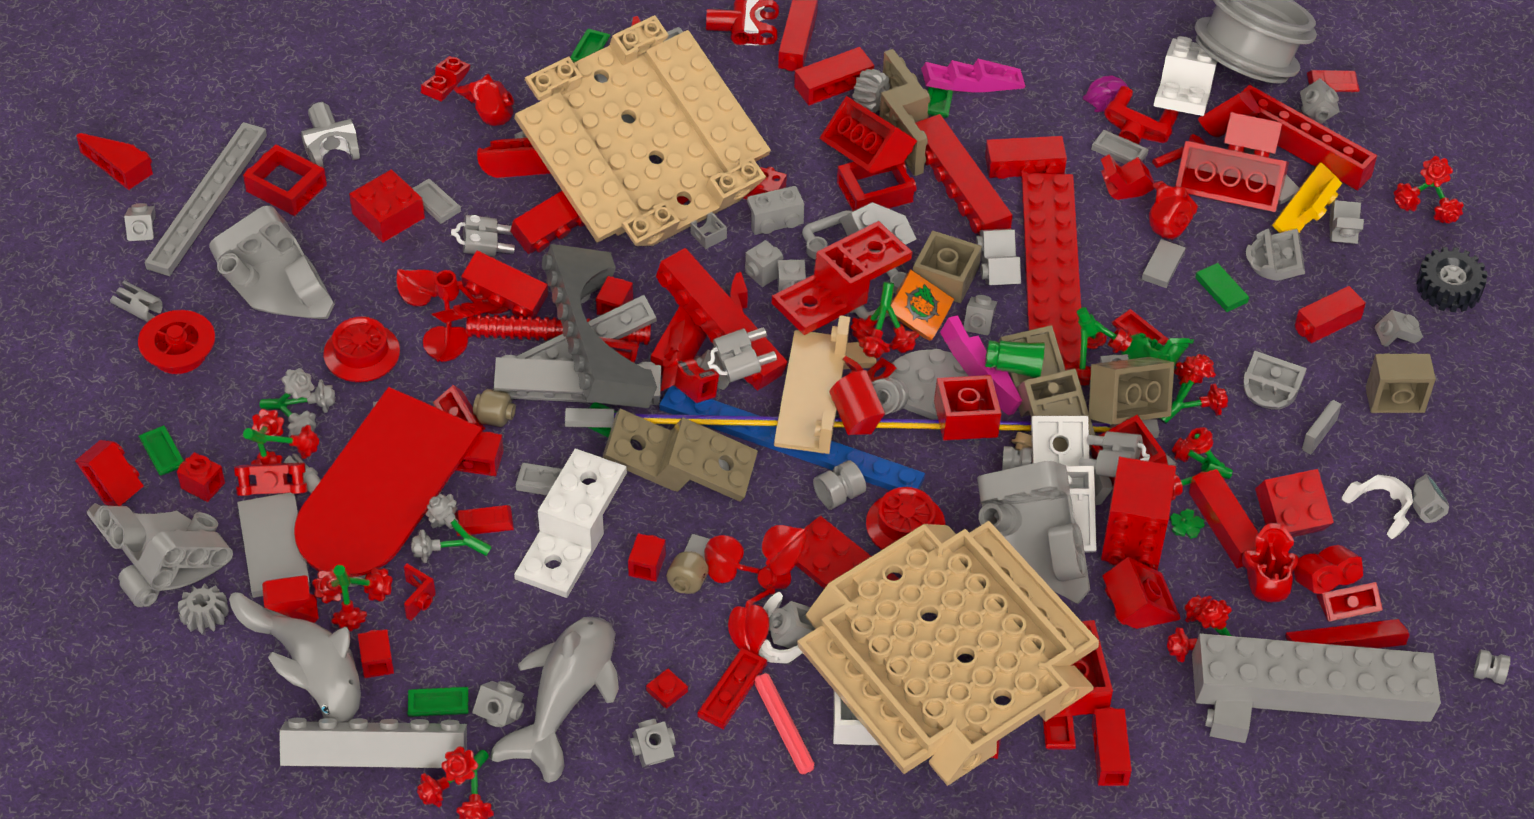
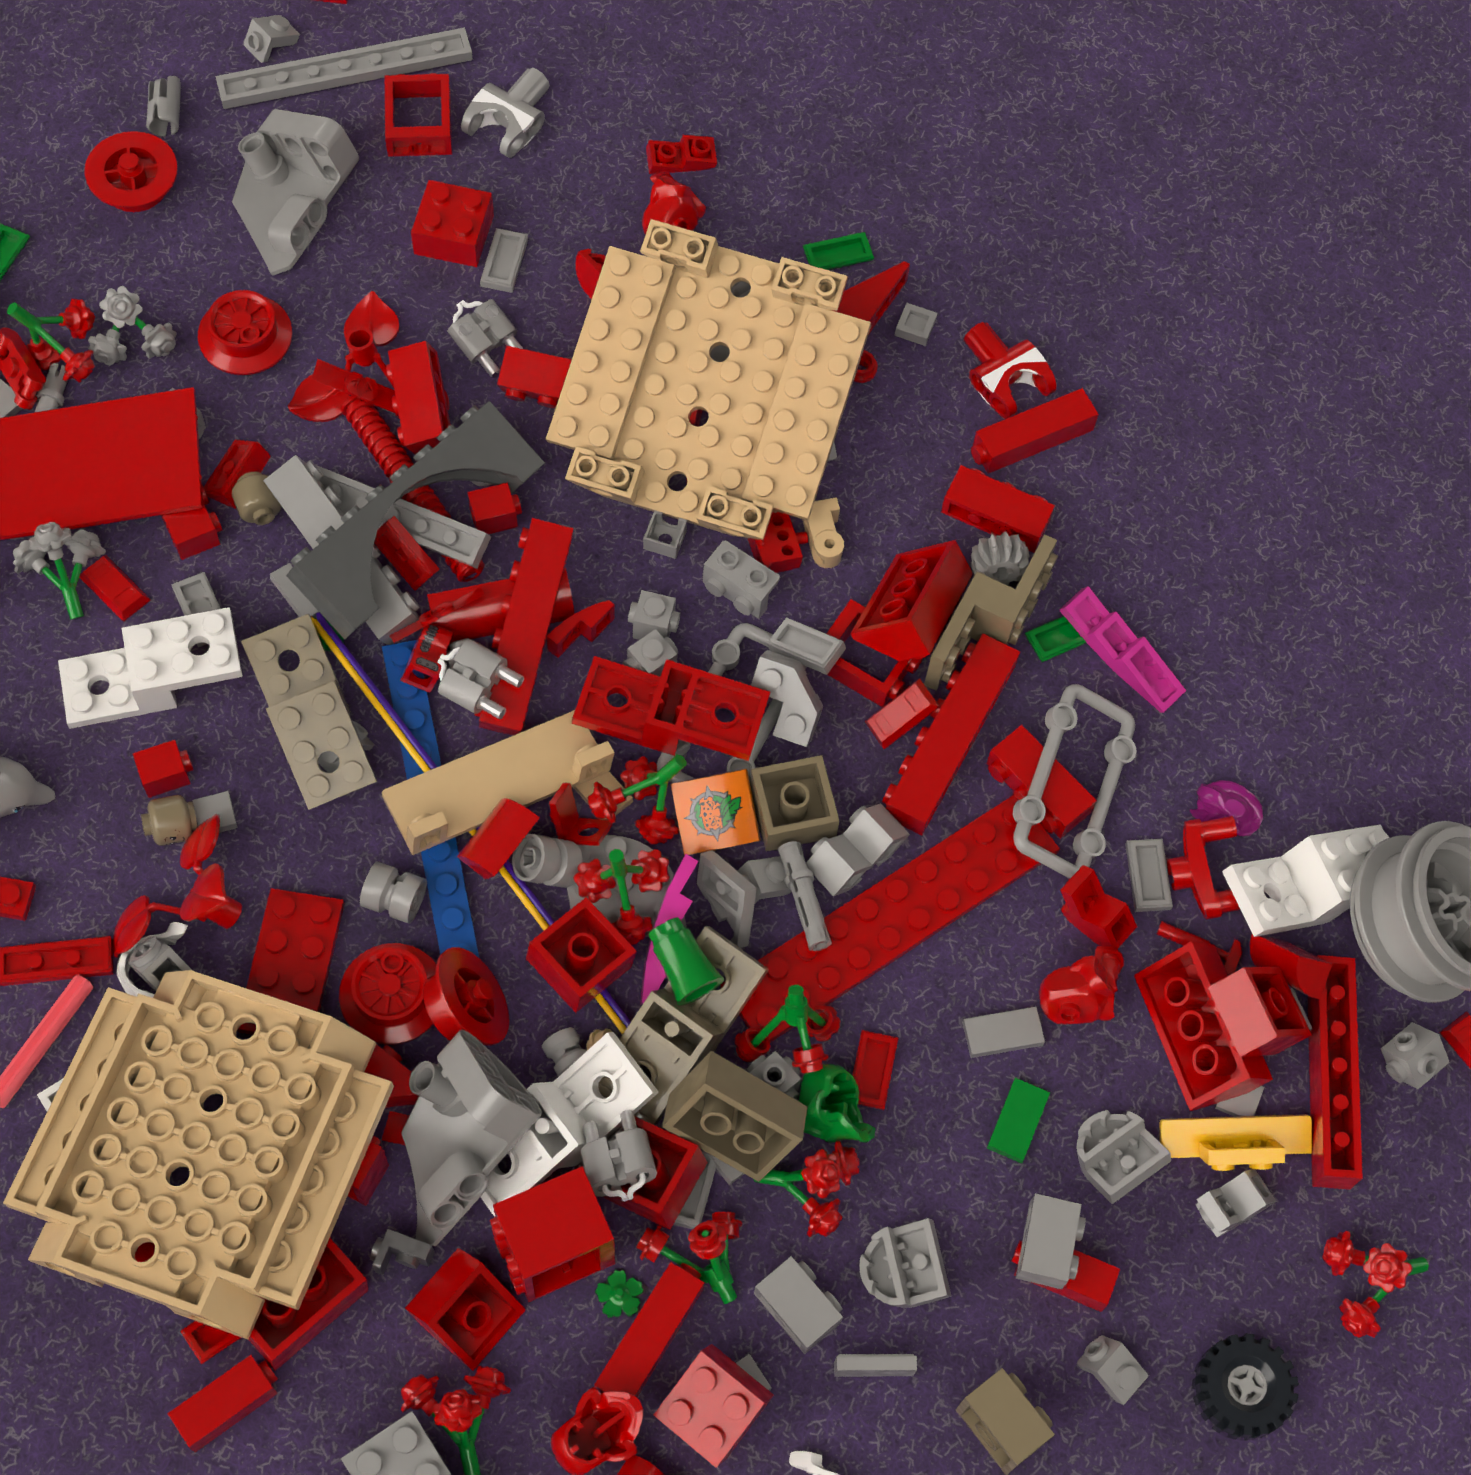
camera: 50 degrees right, 15 degrees up
(782, 160) = (823, 539): none -> tan leg
(851, 200) = (806, 645): none -> light grey tile
(929, 190) = (902, 713): none -> tile
(934, 352) = (597, 880): none -> red plant
(946, 482) = (466, 998): none -> red wheel
(981, 287) = (800, 881): none -> light grey pin
(983, 323) = (729, 895): none -> light grey wing
(1035, 116) = (1117, 752): none -> light grey bar
(1084, 602) = (408, 1251): none -> flat silver bracket
(1259, 440) = (799, 1303): none -> light grey brick
(1313, 299) = (1050, 1241): none -> light grey brick

